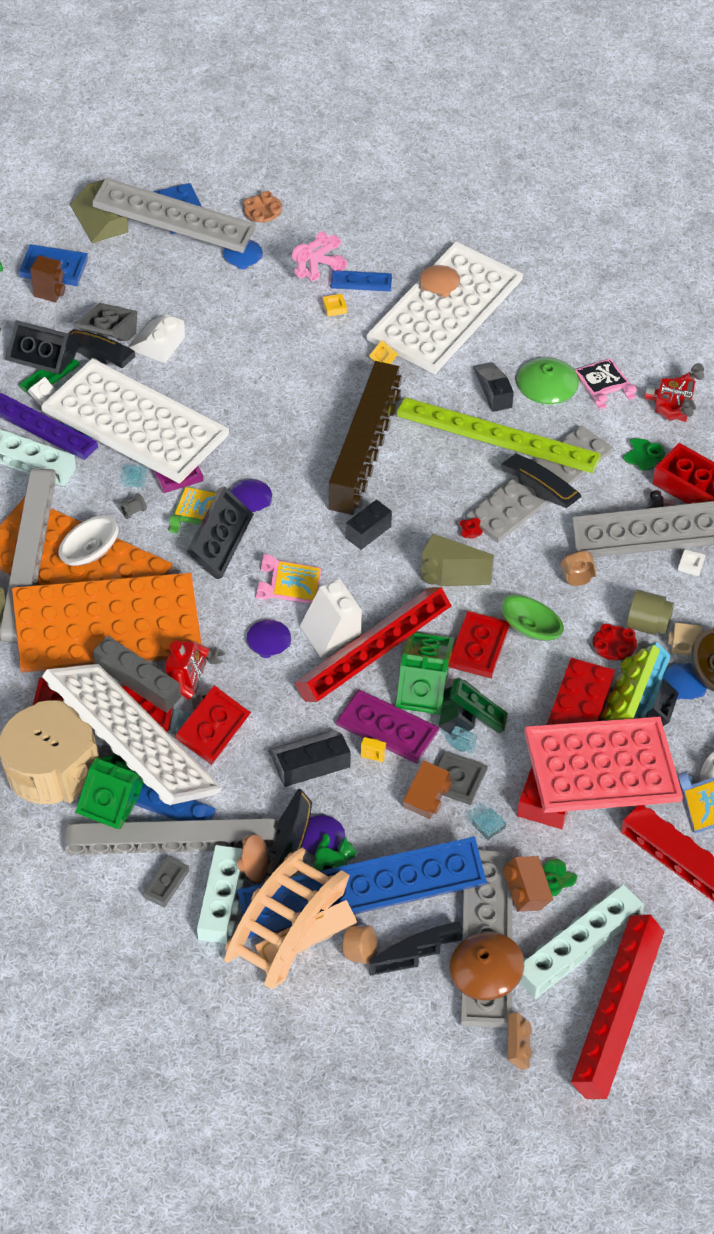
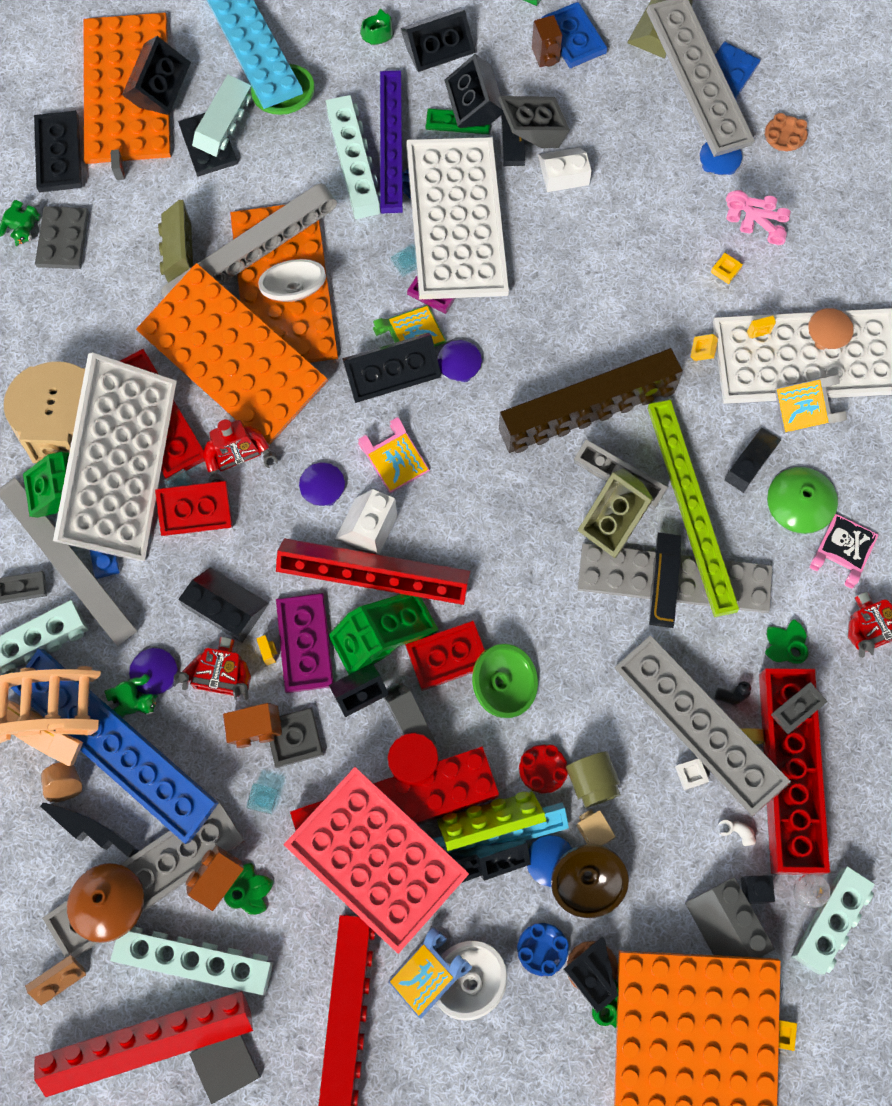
camera: 55 degrees right, 20 degrees up
(42, 391) = (432, 129): white plate -> none
(132, 506) = (370, 282): dark grey bush -> none
(137, 674) = (188, 416): dark grey brick -> none
(254, 858) = (81, 639): nougat dish -> none
(291, 829) = (131, 648): black slope -> none
(361, 280) = (777, 268): blue tile -> none
(365, 787) = (217, 671): none -> torso
(368, 524) = (500, 473): black brick -> none
(403, 311) = (761, 327): none -> yellow tile
(437, 457) = (604, 464): none -> light grey brick
(455, 564) = (506, 571): olive slope -> none
(463, 740) = (330, 716): clear light blue plate -> none
(469, 470) = (616, 512): none -> olive slope
(471, 532) = (571, 564): red plate -> none
(478, 705) = (368, 704): dark green tile -> none
(482, 330) = (807, 404): none -> flag
(511, 691) = (406, 712): none -> dark grey slope
(546, 698) = (412, 758): none -> red tile
(578, 568) = (596, 681): medium nougat hair -> none
(676, 972) = (224, 1067): none -> dark grey tile
(700, 464) = (799, 708): none -> dark grey plate

